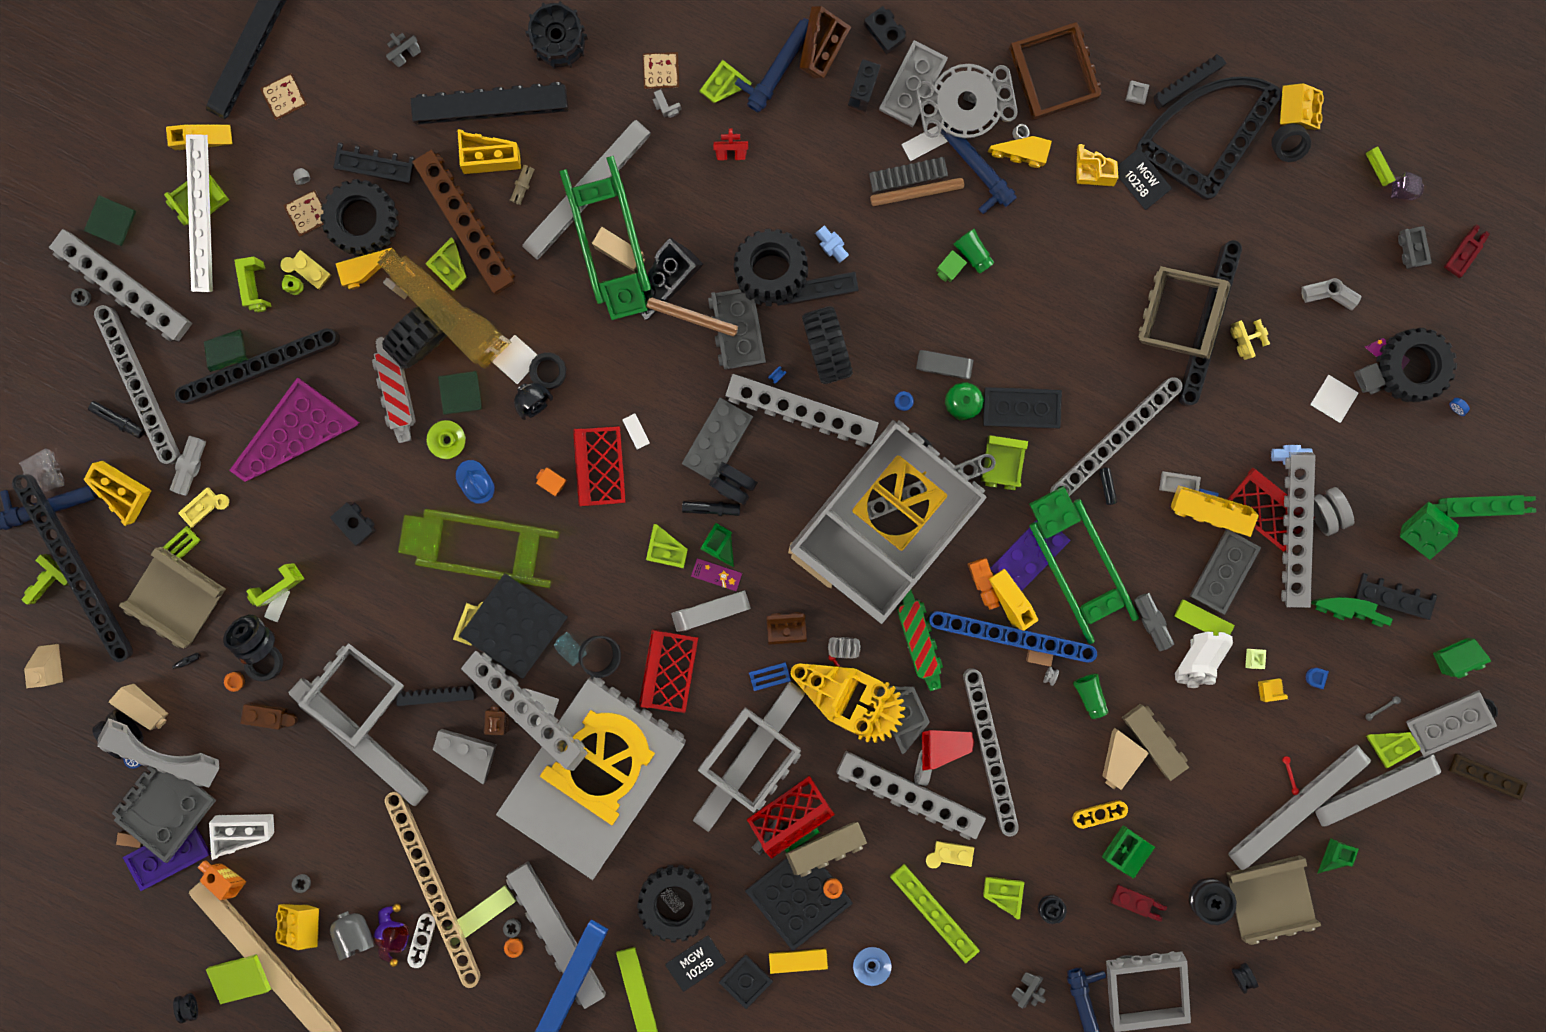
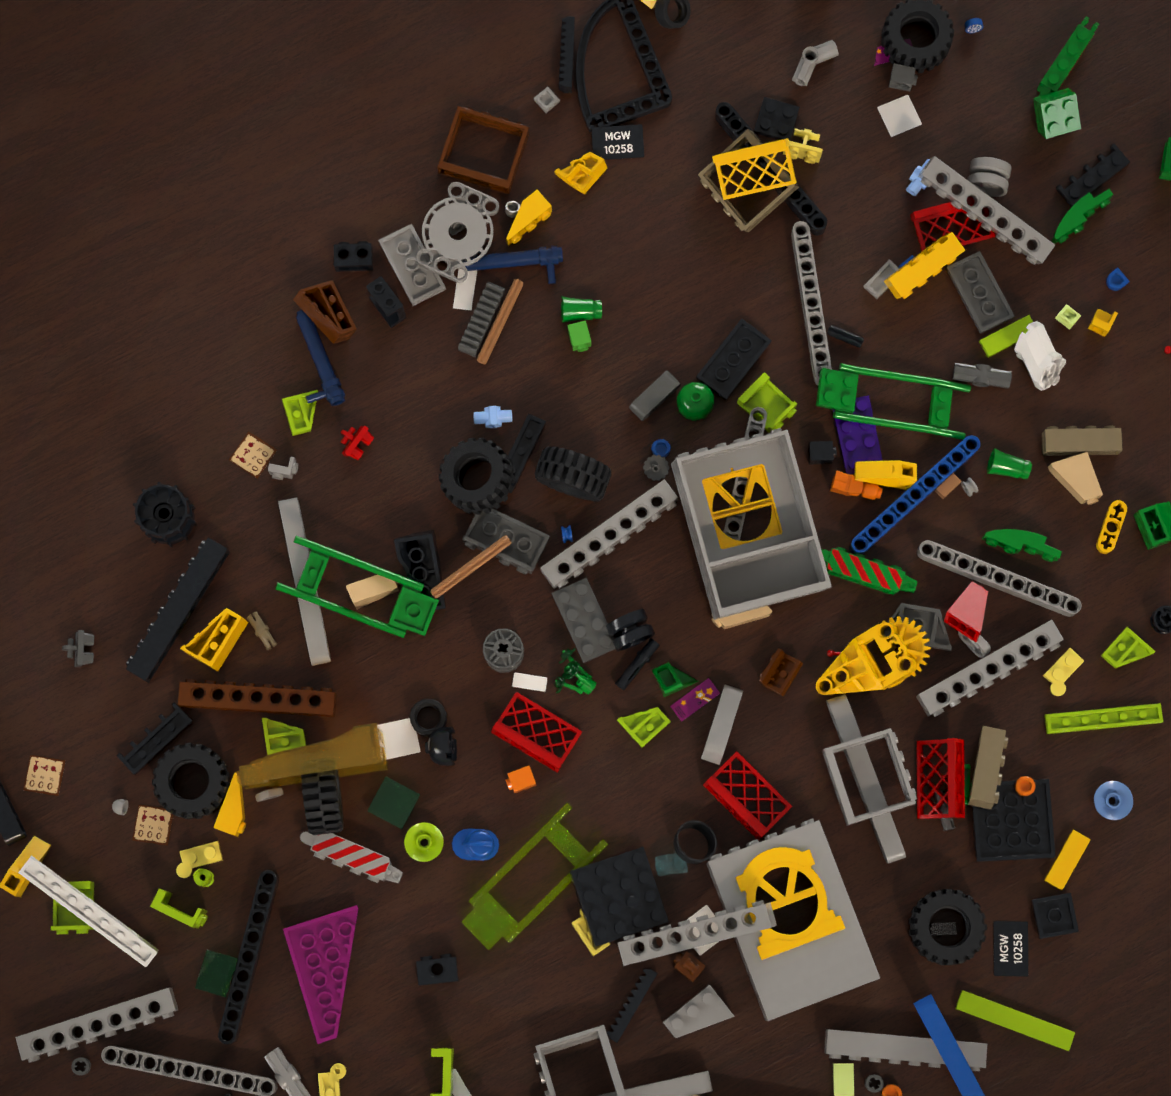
camera: 55 degrees left, 10 degrees down
(110, 220) = (37, 993): clear green tile -> none
(649, 402) = (499, 661): none -> dark grey wheel
(665, 476) = (584, 682): none -> plant
(769, 684) = (815, 699): blue tile -> none
(844, 647) = (829, 635): light grey gear -> none
(885, 408) = (656, 467): none -> dark grey piece
(994, 535) = (821, 452): none -> black brick
(1032, 744) = (1014, 540): none -> green slope
(1209, 299) = (747, 154): none -> yellow fence
(1257, 298) = (776, 119): none -> black plate

